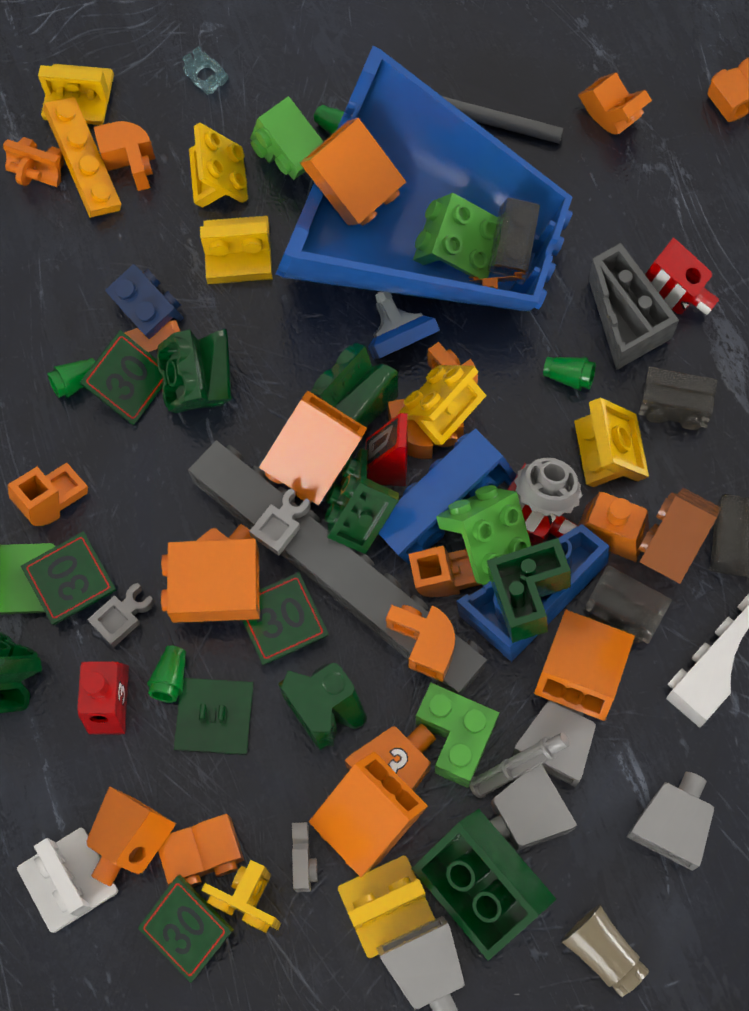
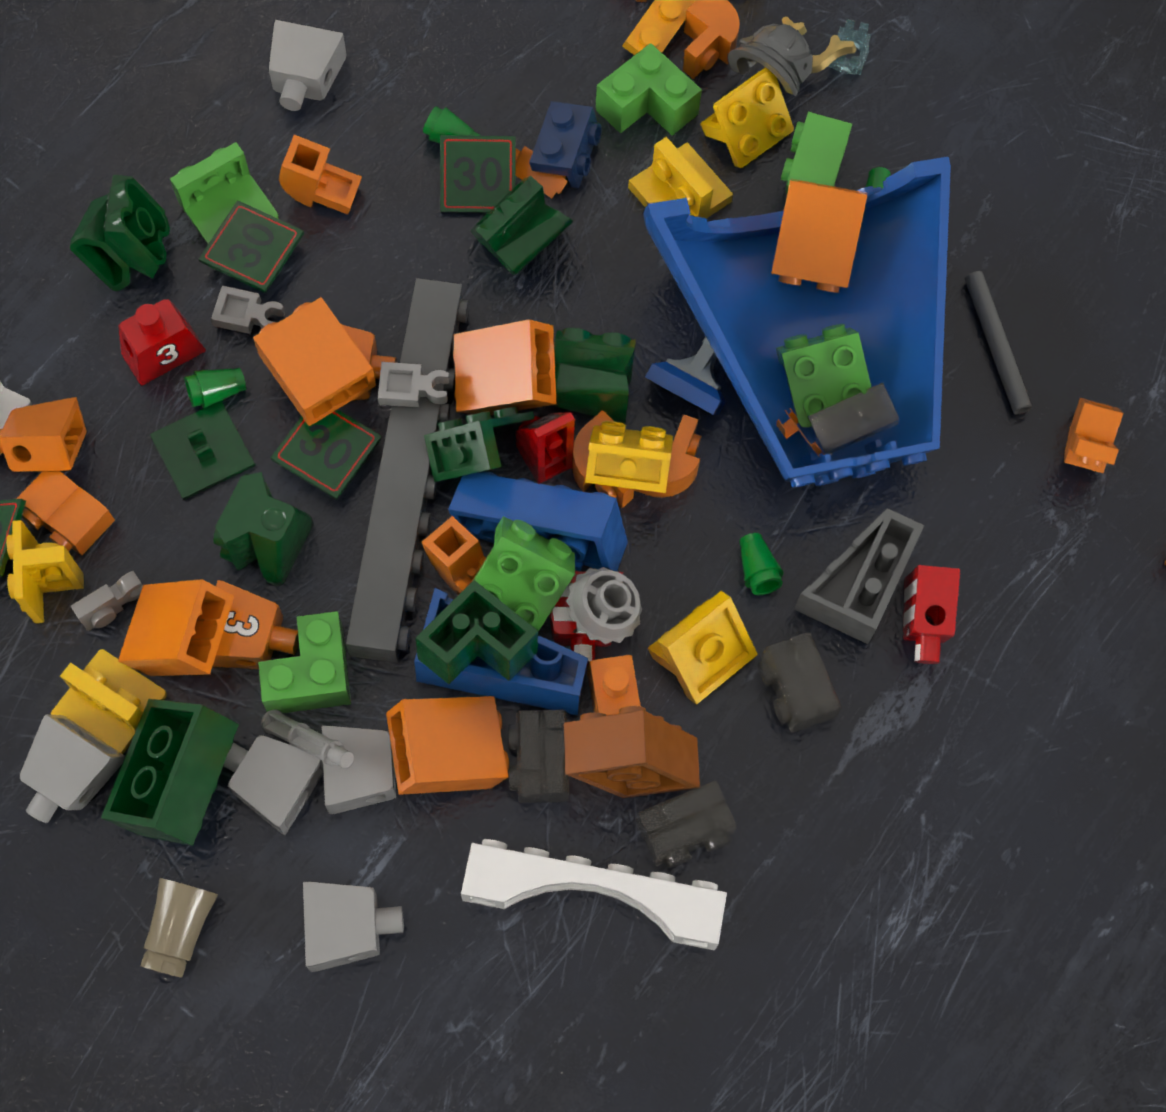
camera: 50 degrees right, 0 degrees up
(142, 215) = (649, 86): none -> bright green brick
(185, 109) = (785, 53): none -> dark grey helmet
(434, 638) = (377, 589): orange brick -> none

